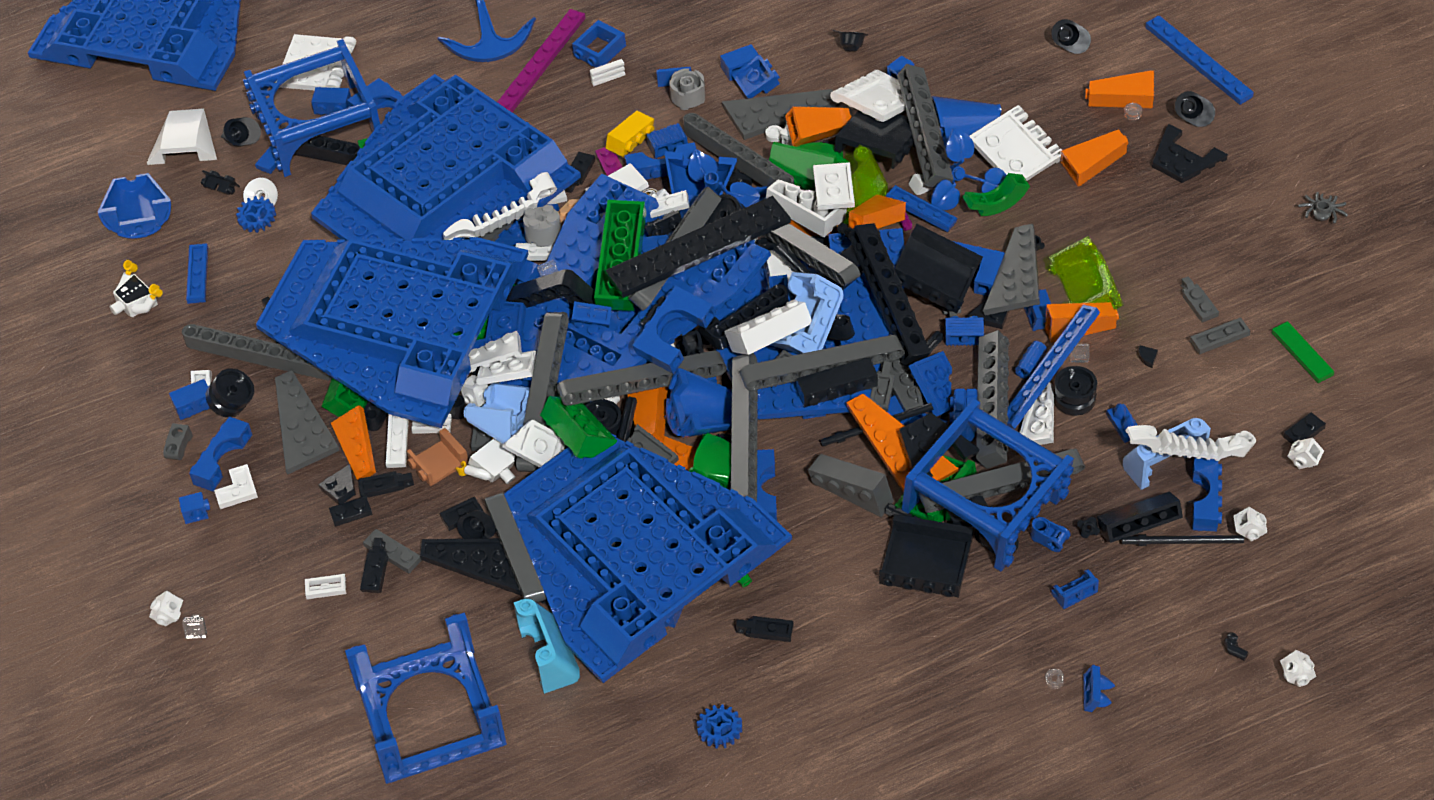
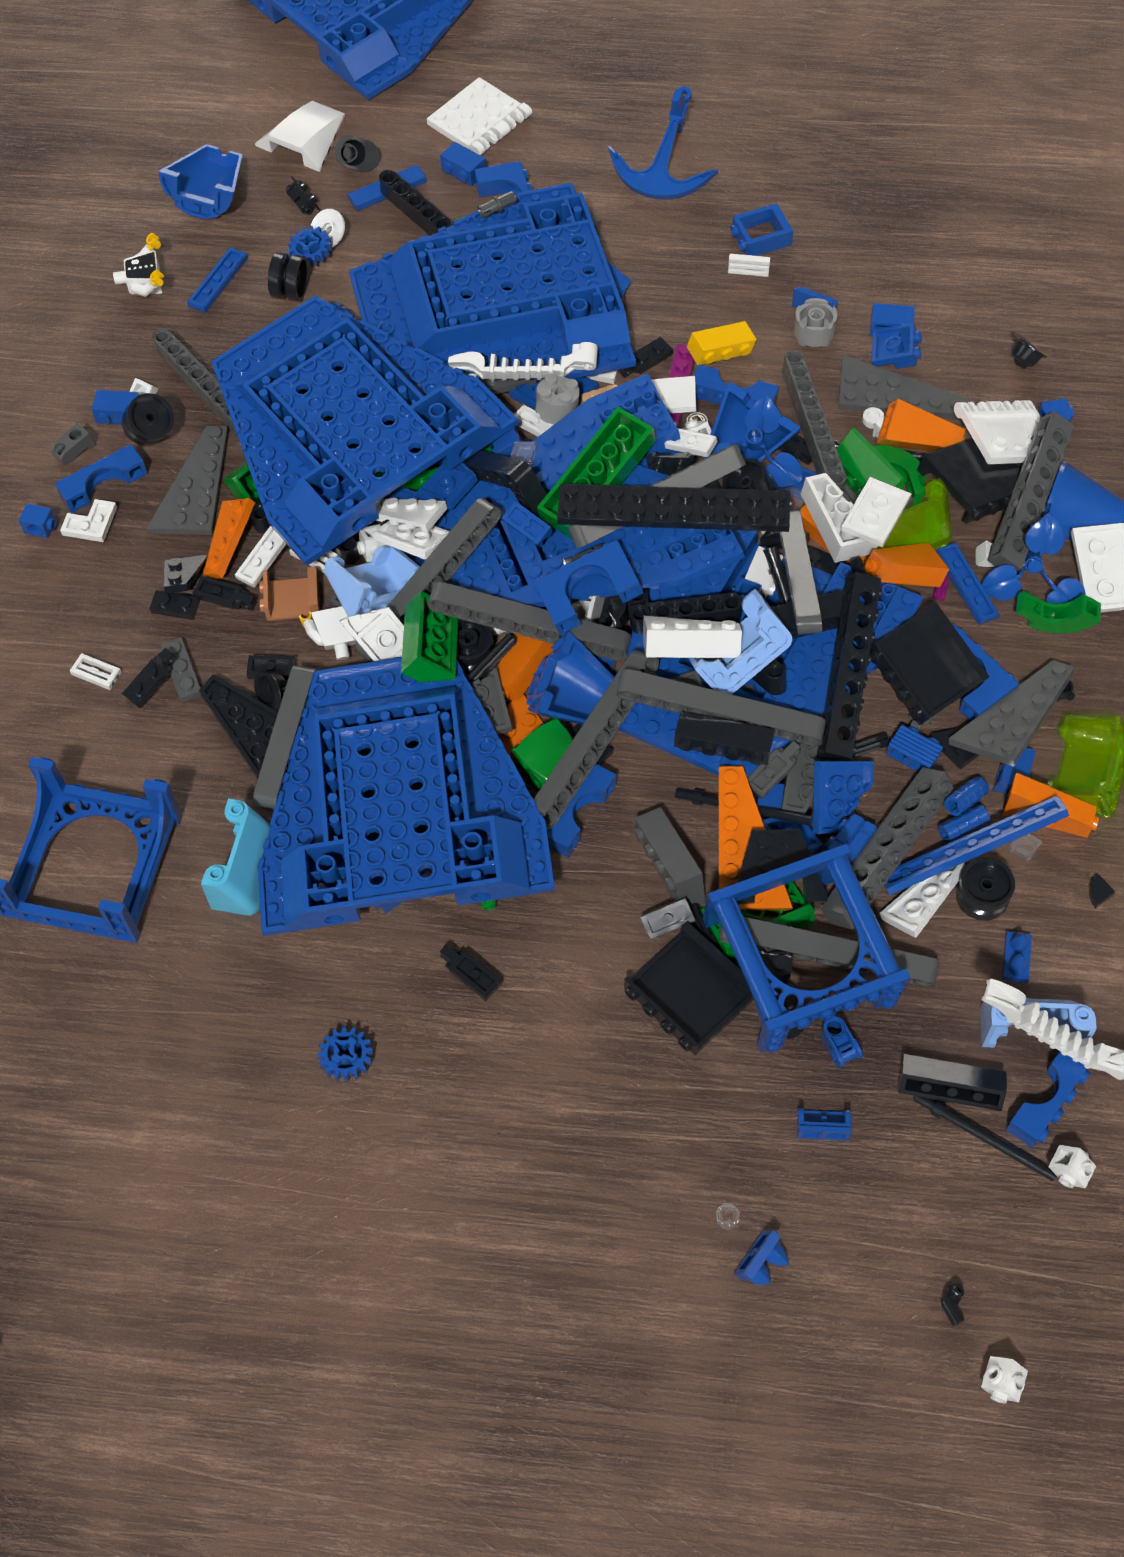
camera: 30 degrees right, 10 degrees up
(260, 241) = (288, 276): none -> black wheel
(292, 137) = (398, 113): blue arch -> none
(391, 114) = (496, 204): none -> dark grey axle
(541, 59) = (687, 222): magenta plate -> none
(666, 140) = (755, 368): blue brick -> none
(878, 520) = (667, 917): none -> plate
(1021, 340) = (966, 796): none -> blue axle
(1090, 521) = (894, 1057): black plate -> none

